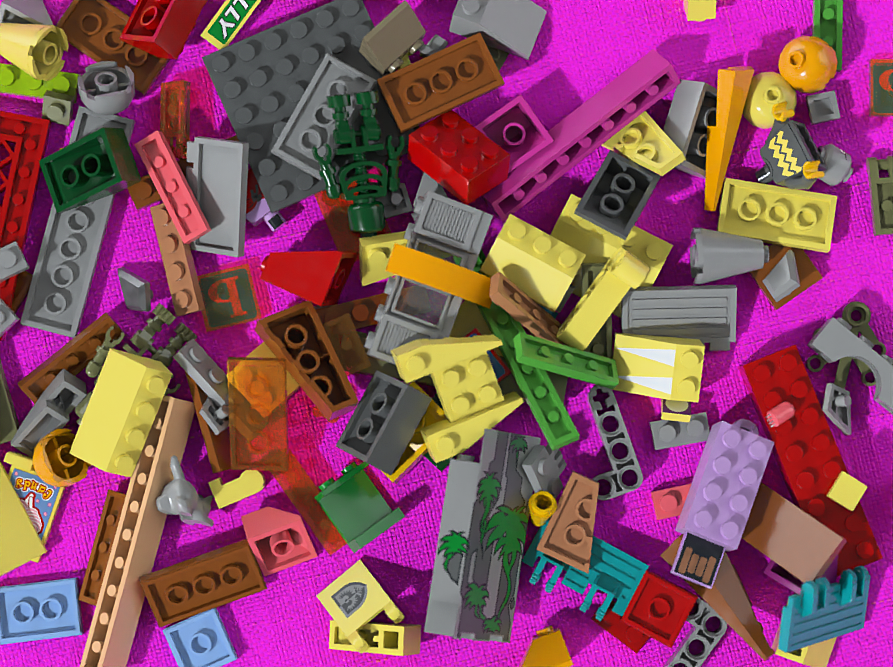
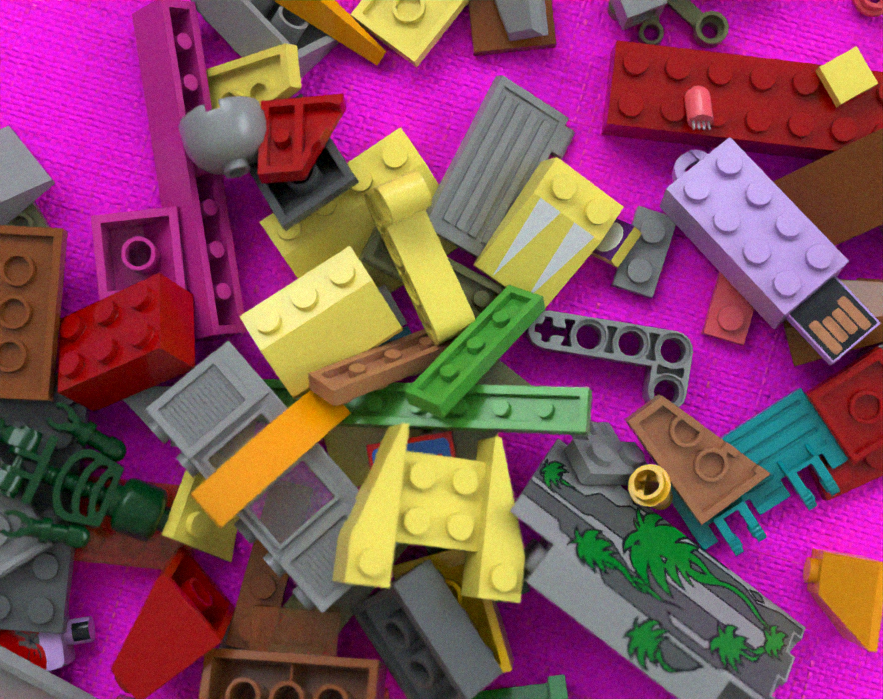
camera: 65 degrees left, 0 degrees up
(395, 202) = (142, 459): flat silver piece -> none
(609, 150) = (224, 137): none -> light grey cylinder
(633, 187) = (296, 135): none -> red wing
(724, 255) = (449, 70): light grey cone -> none
(837, 407) = (726, 32): light grey piece -> none

